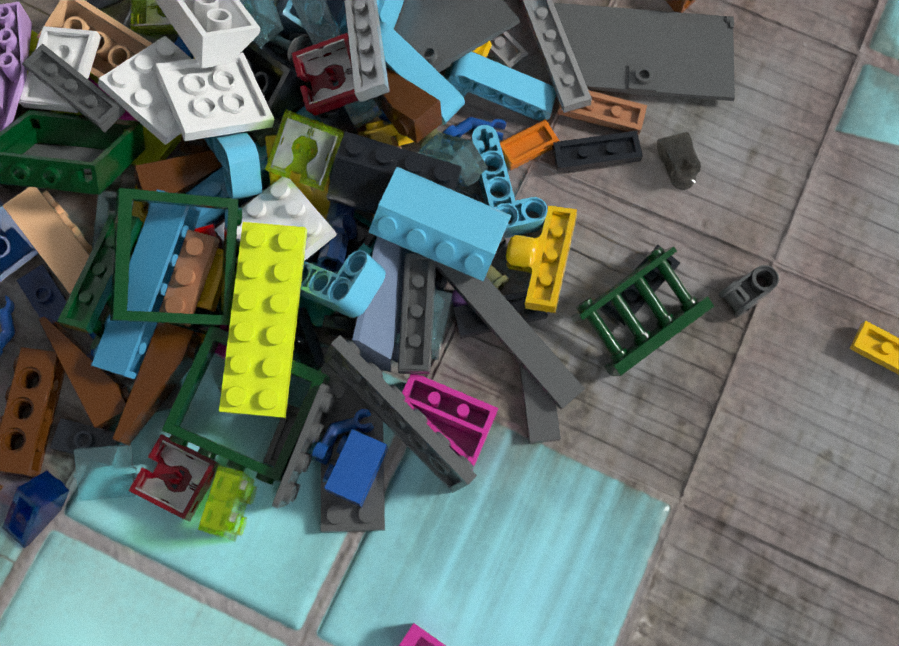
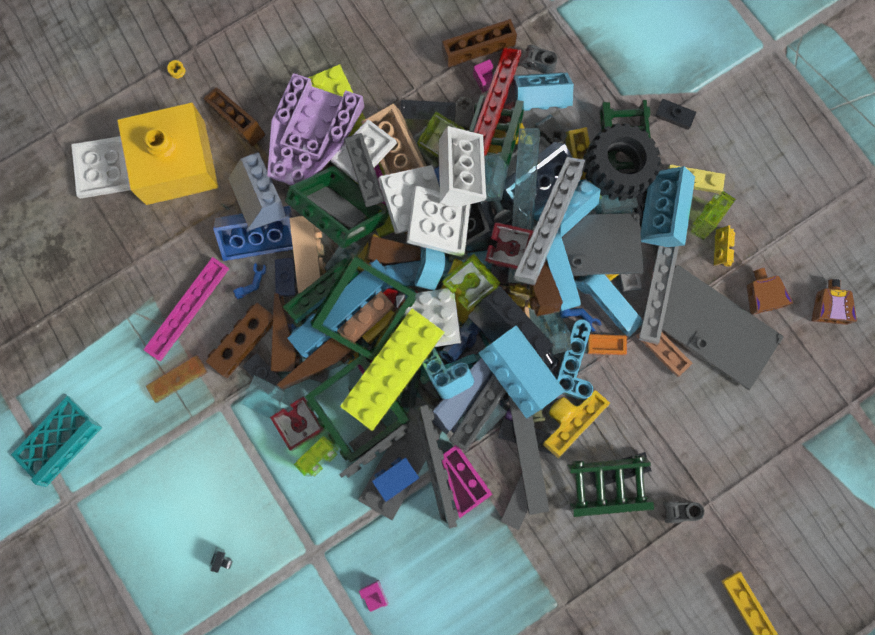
camera: 35 degrees right, 5 degrees up
(34, 507) = (217, 395): clear blue slope -> none
(323, 449) = (384, 457): blue arm -> none
(597, 151) = (645, 373): black plate -> none
(679, 159) = (691, 403): clear smoke piece -> none

